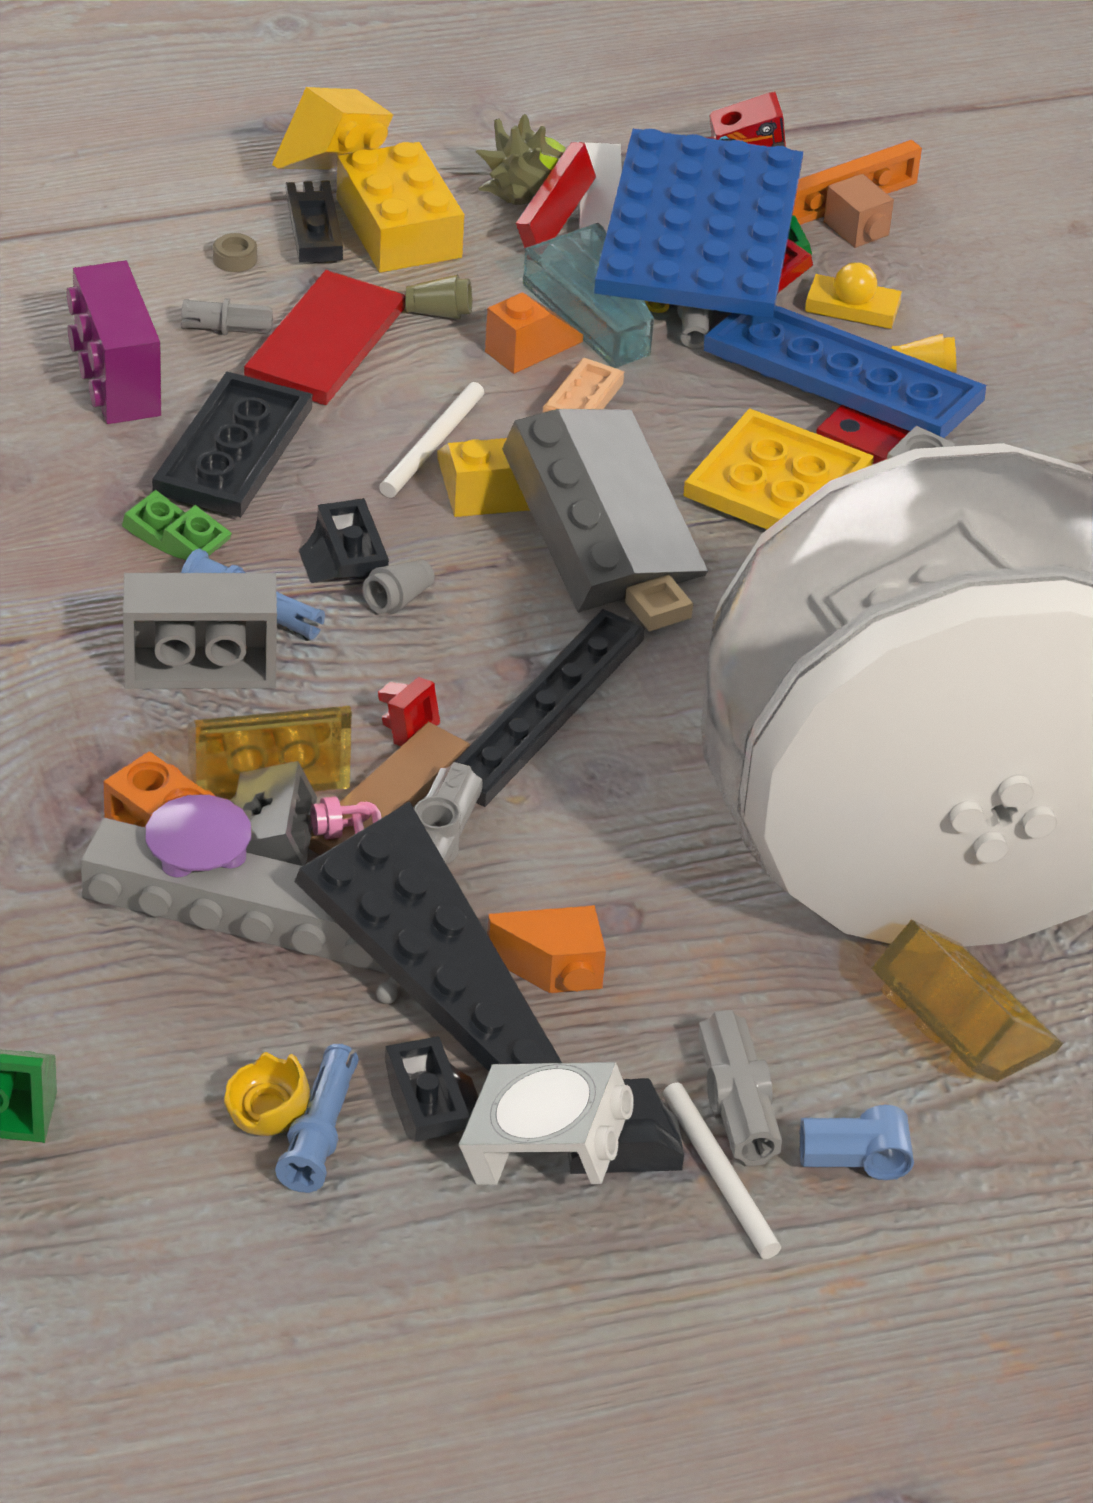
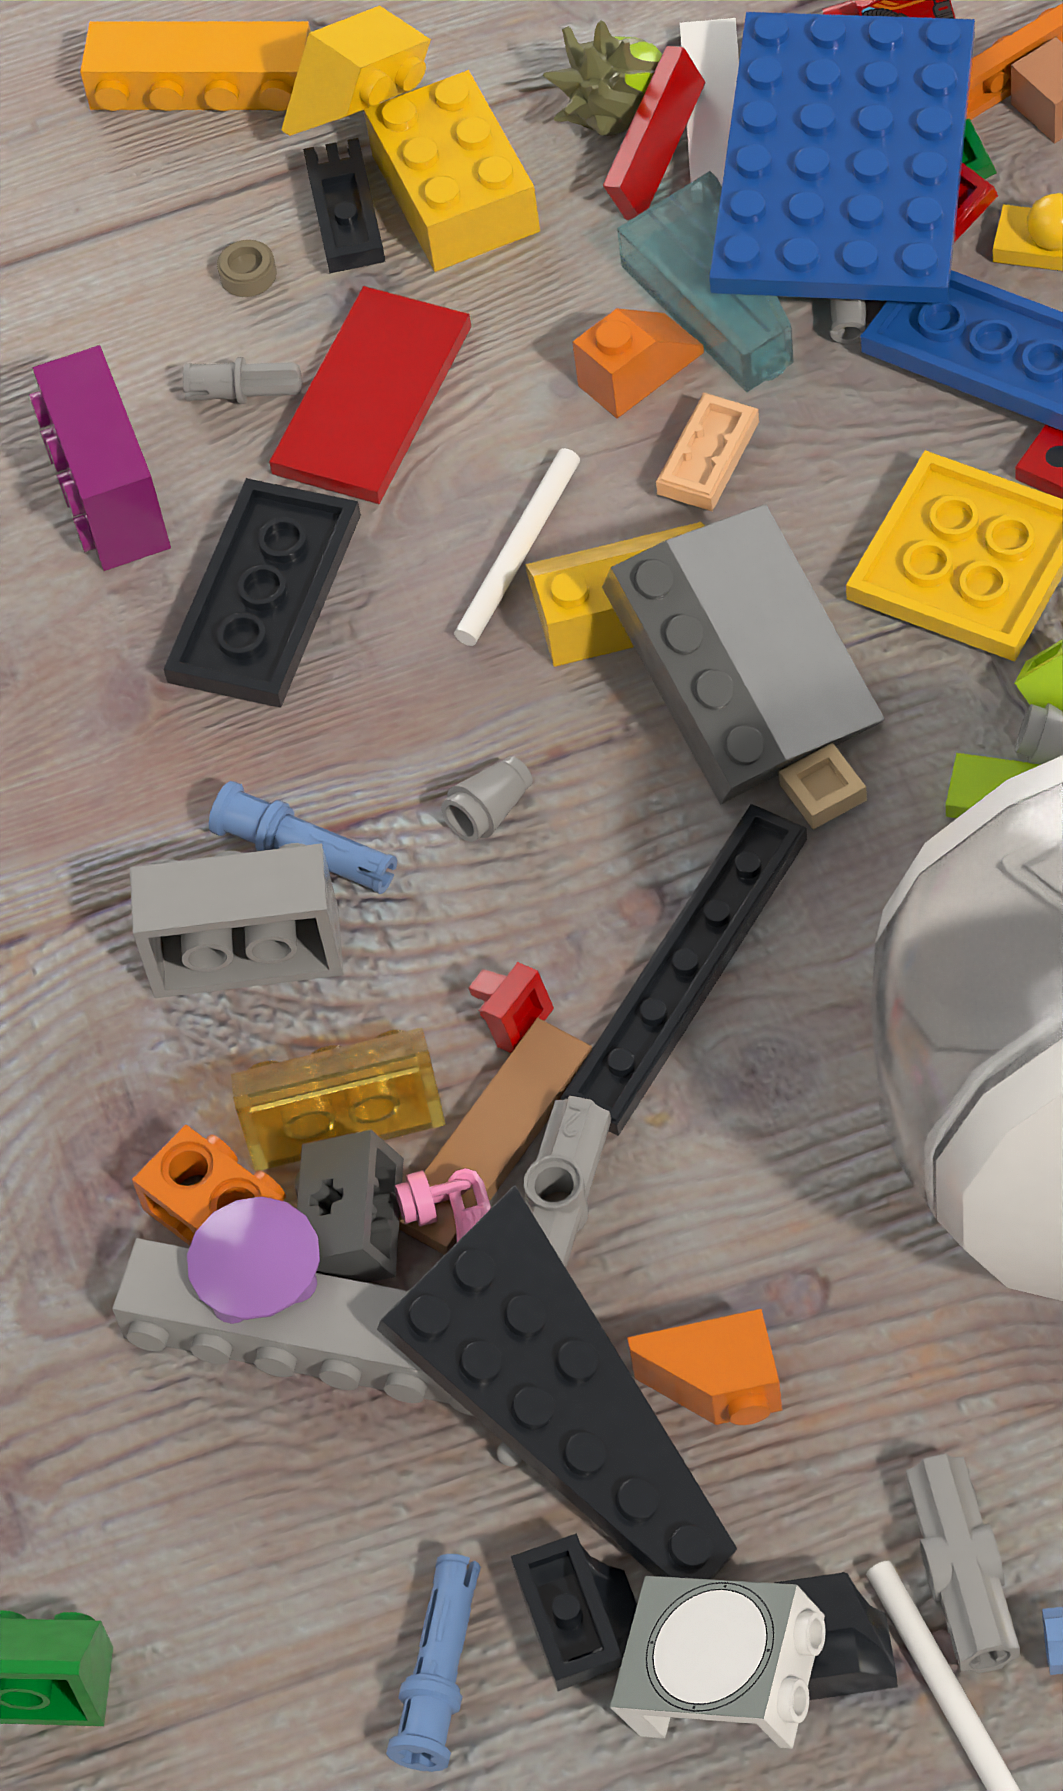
camera: 10 degrees right, 15 degrees up
(173, 530) = (198, 740): bright green slope -> none
(203, 124) = (192, 64): none -> light orange brick
(267, 1095) = (368, 1642): yellow hair -> none
(343, 542) = (413, 741): black slope -> none
(441, 297) = (515, 312): olive cone -> none

